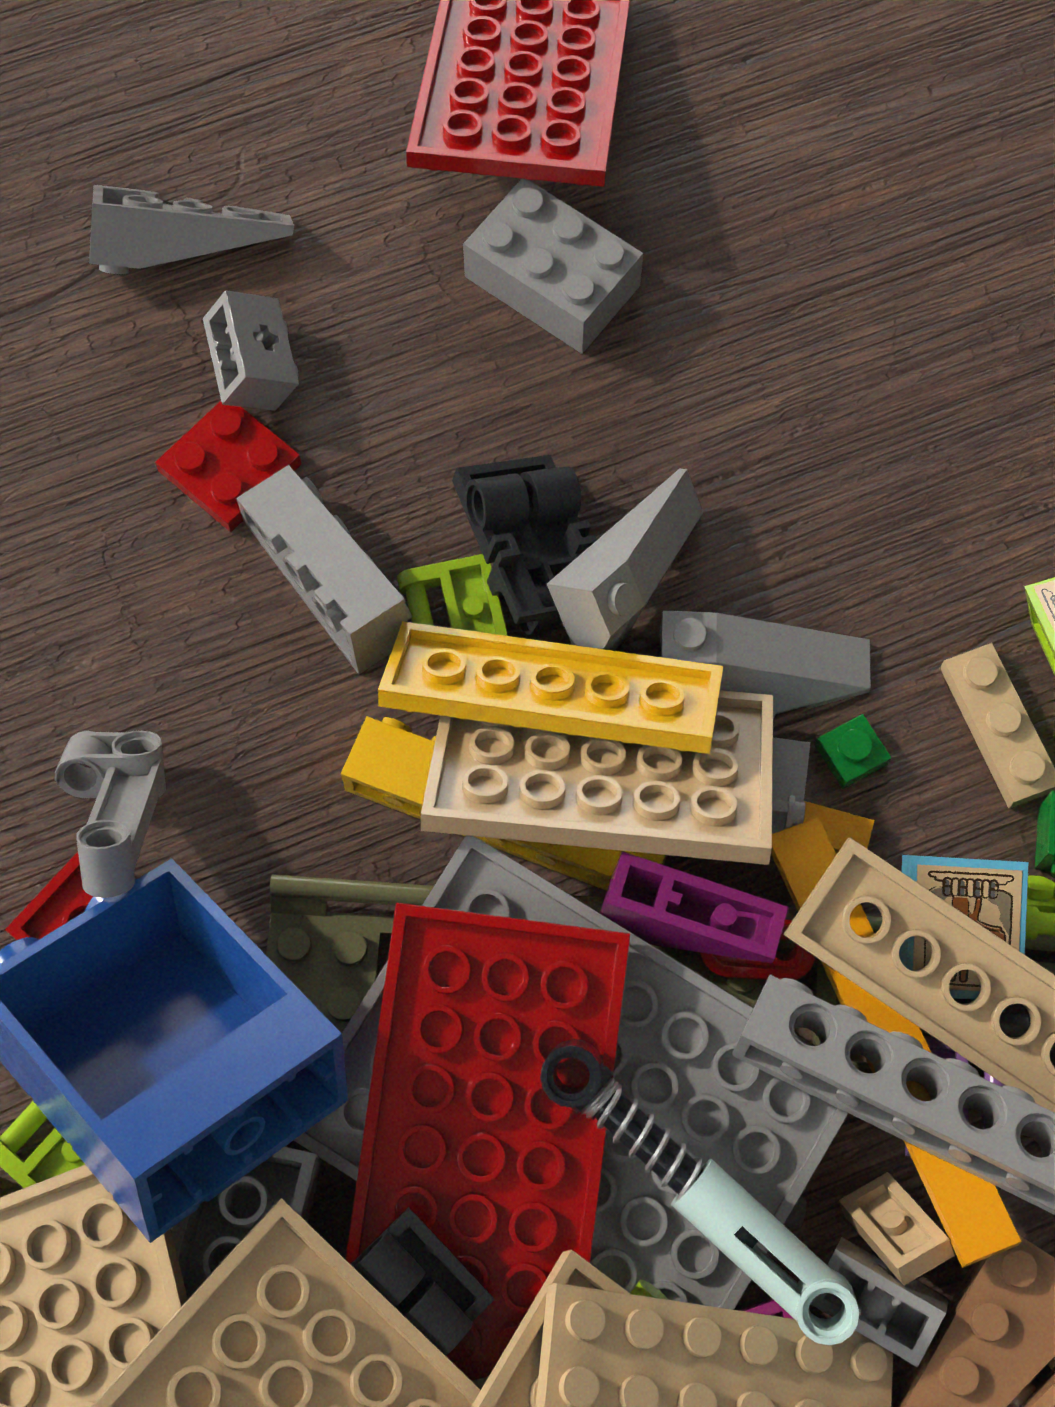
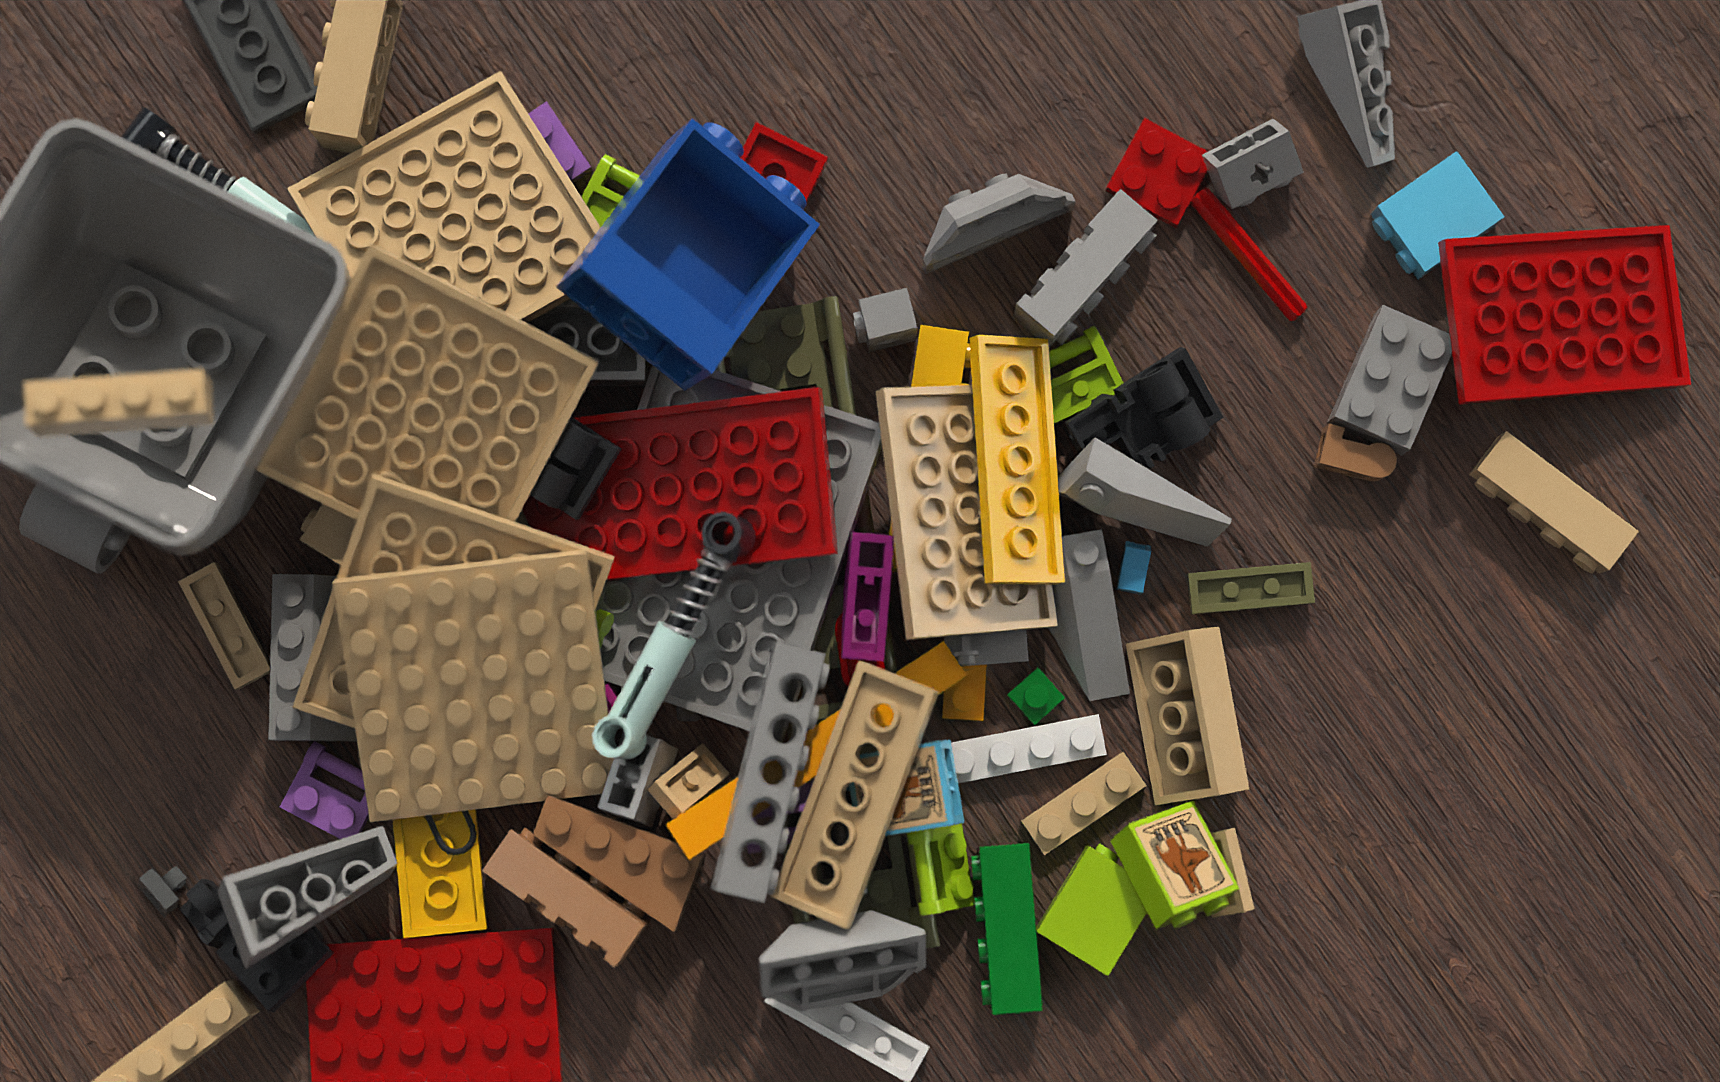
camera: 80 degrees right, 15 degrees up
(126, 782) = (884, 176): light grey piece -> none
(223, 663) = (992, 216): none -> light grey wedge
(322, 814) = (885, 320): none -> light grey brick
(357, 387) = (1249, 254): none -> red axle
(368, 182) = (1433, 208): none -> medium azure brick
(633, 330) = (1353, 458): none -> medium nougat leg
(710, 593) = (1133, 567): none -> dark azure piece
(734, 139) = (1553, 504): none -> tan brick
(767, 473) = (1250, 588): none -> olive plate
(914, 576) = (1187, 715): none -> tan slope
(918, 769) = (1028, 748): none -> white plate

